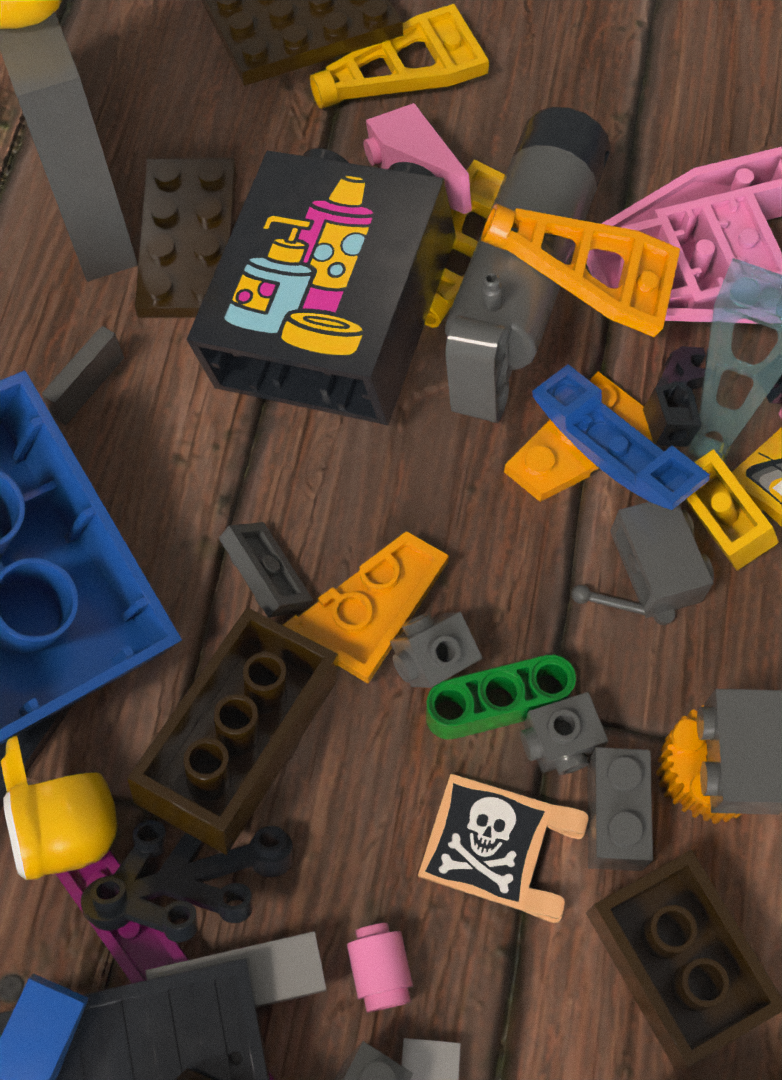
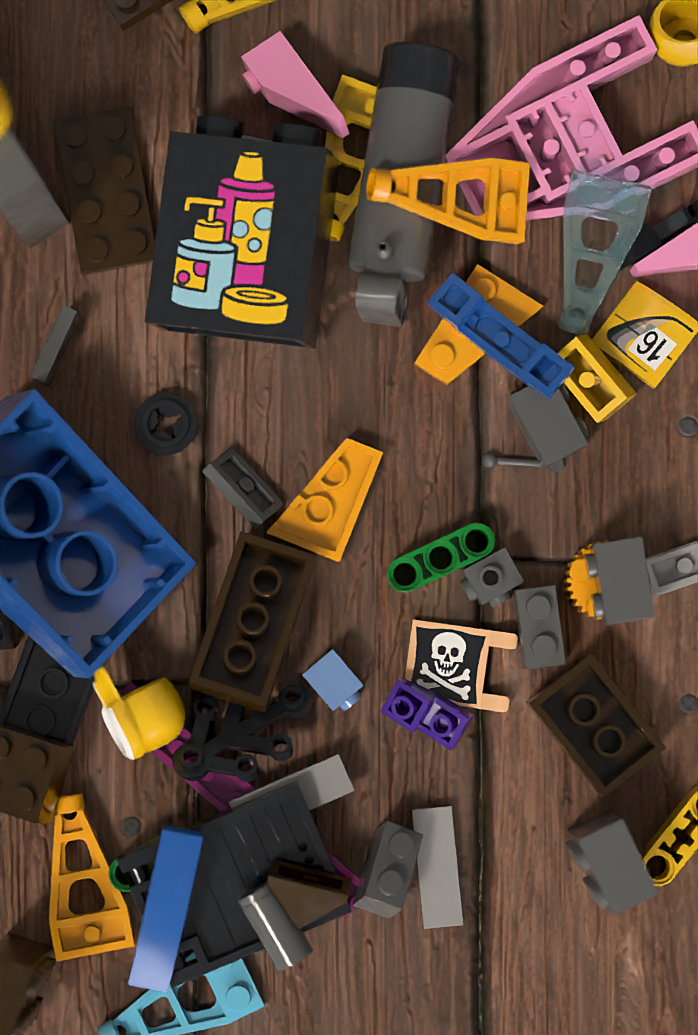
camera: 15 degrees left, 20 degrees up
(169, 478) = (147, 419): none -> black gear
(330, 832) = (334, 681): none -> medium blue brick
(380, 967) = (387, 767): bright pink brick -> none
(434, 649) = (385, 532): dark grey brick -> none
(448, 900) = (429, 712): none -> dark purple slope
(672, 405) = (542, 259): black piece -> none

